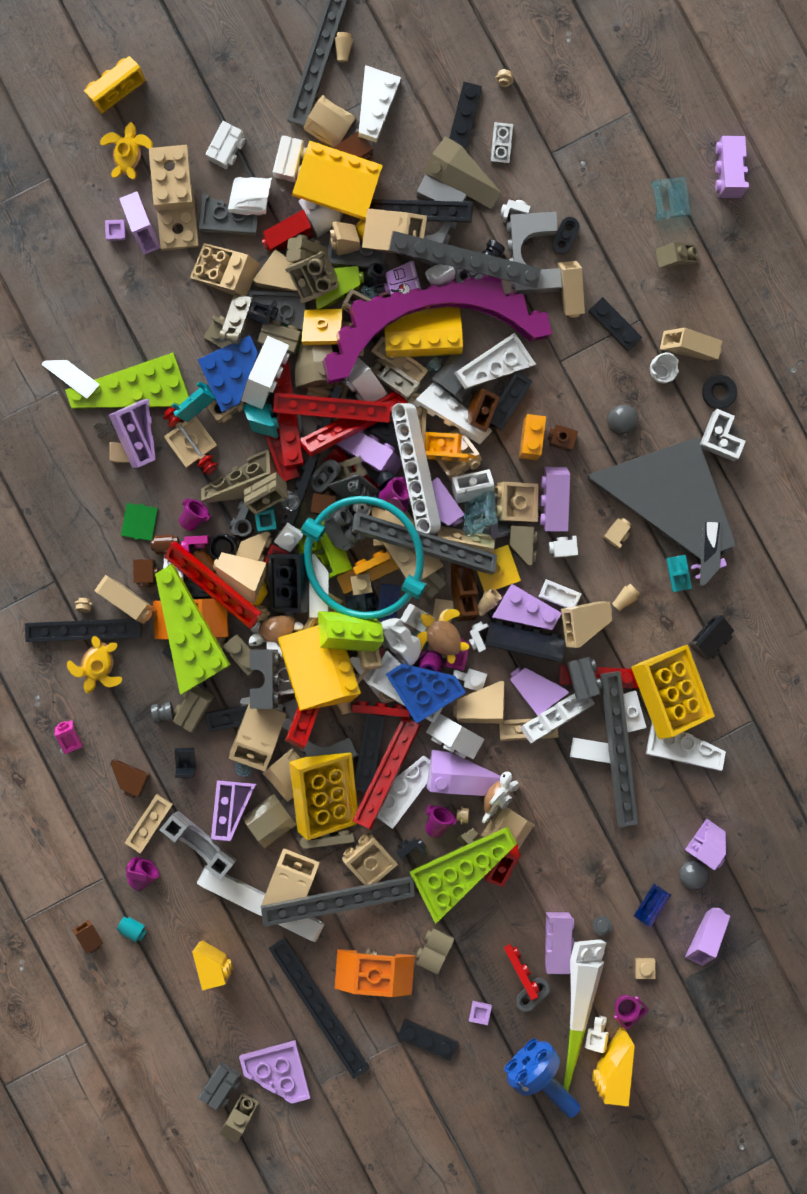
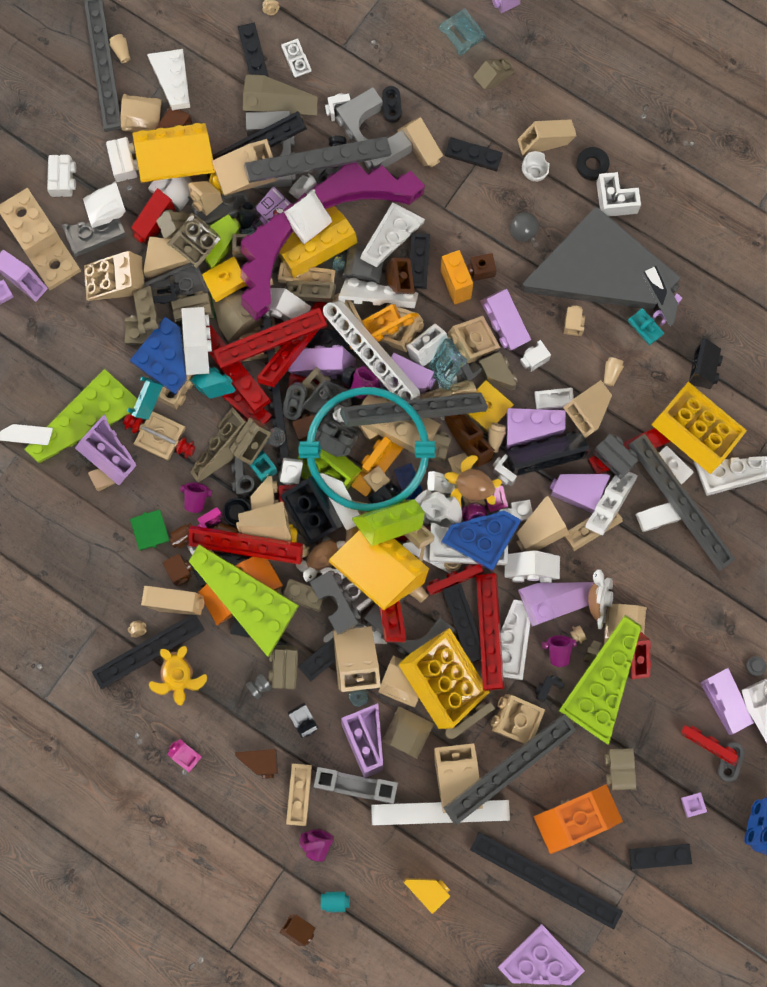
camera: 25 degrees left, 10 degrees down
(426, 311) = (308, 217): none -> white slope

